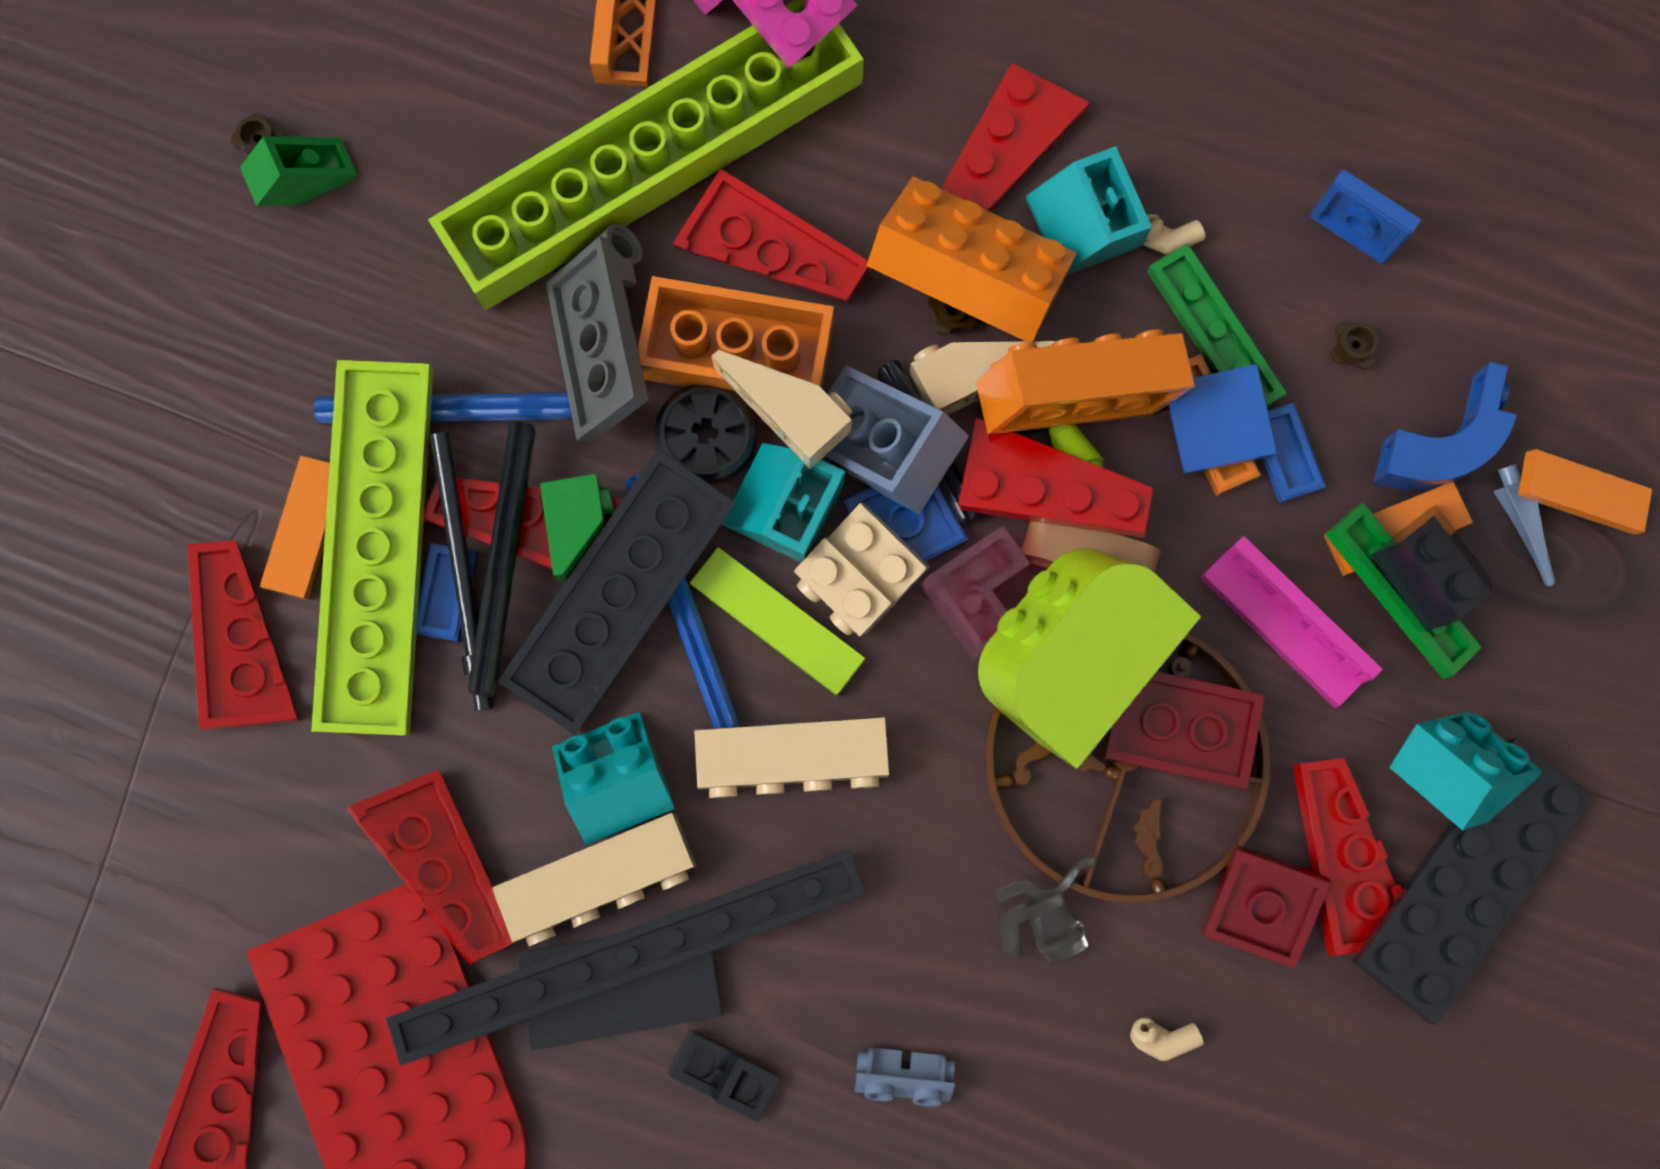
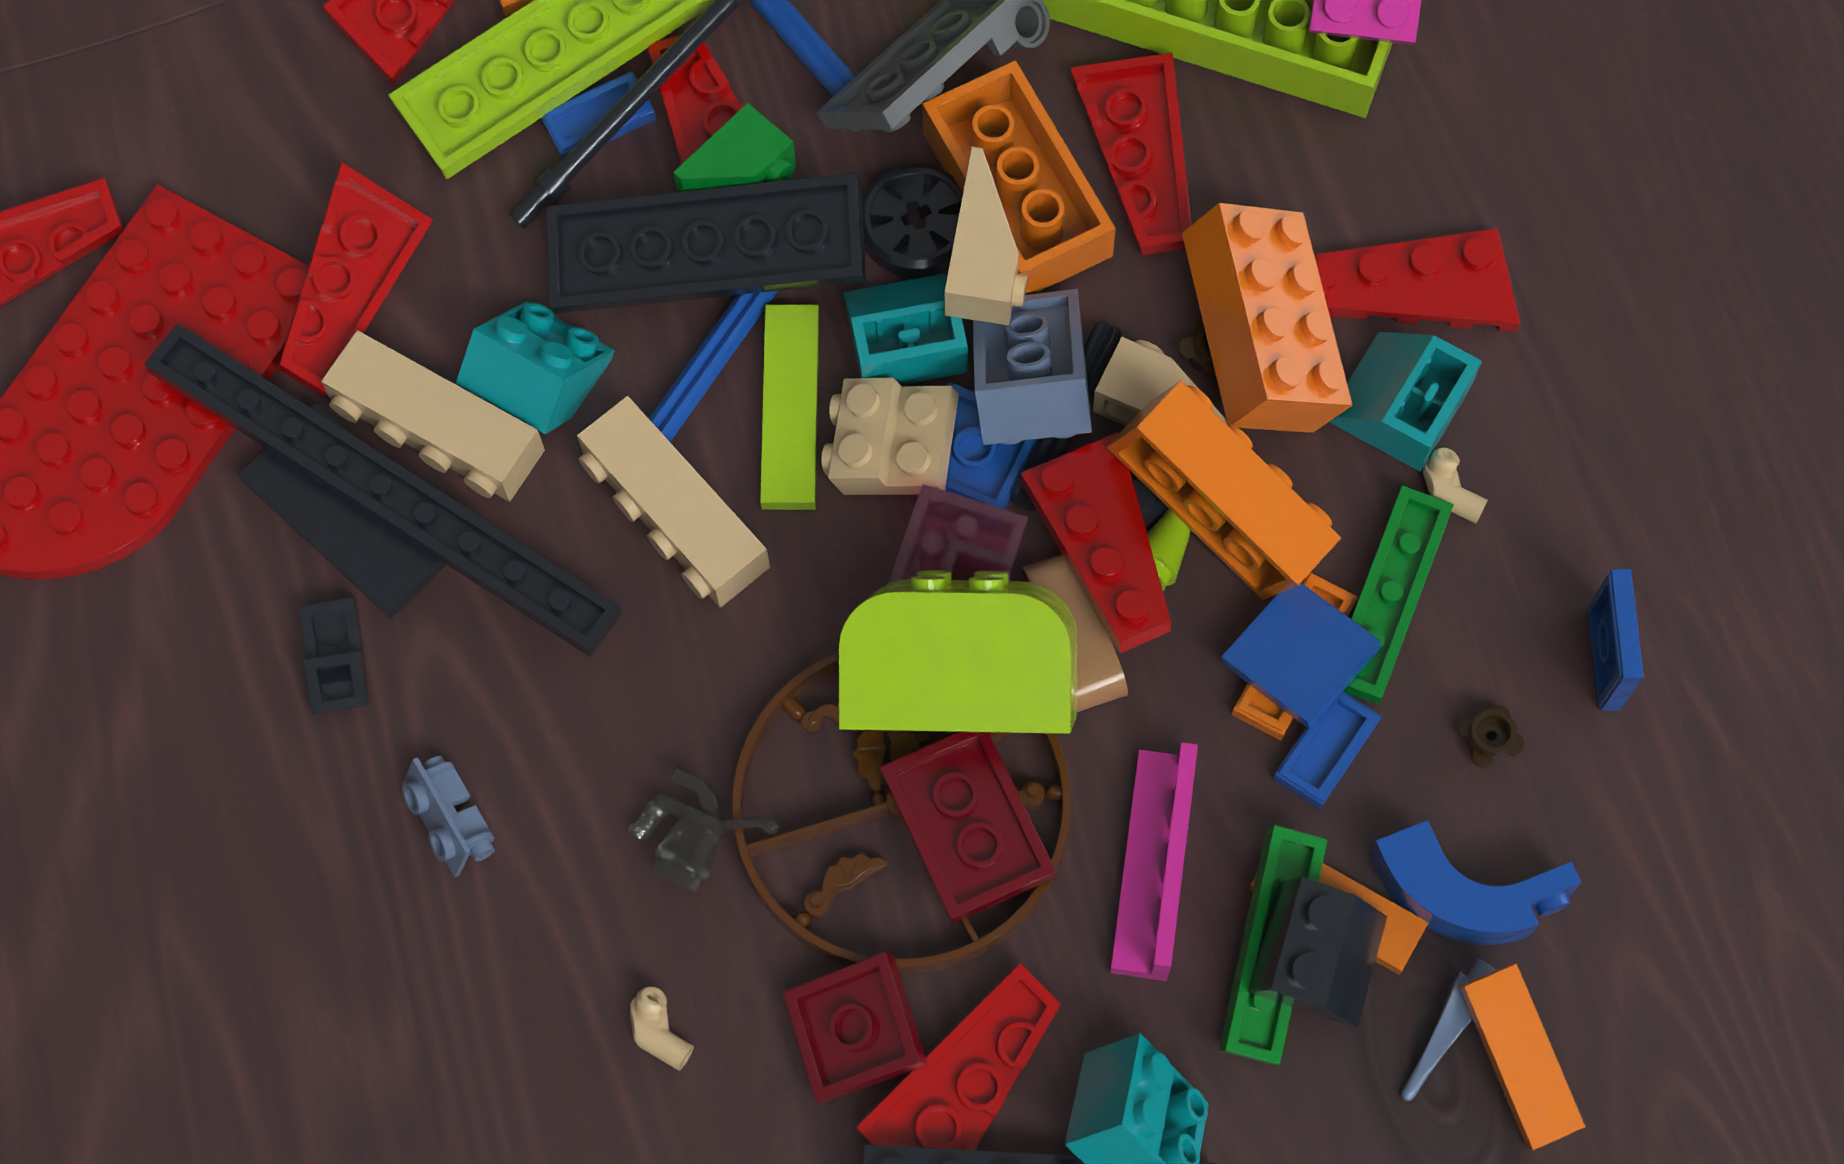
camera: 55 degrees right, 10 degrees down
(501, 559) = (660, 131): black axle -> none

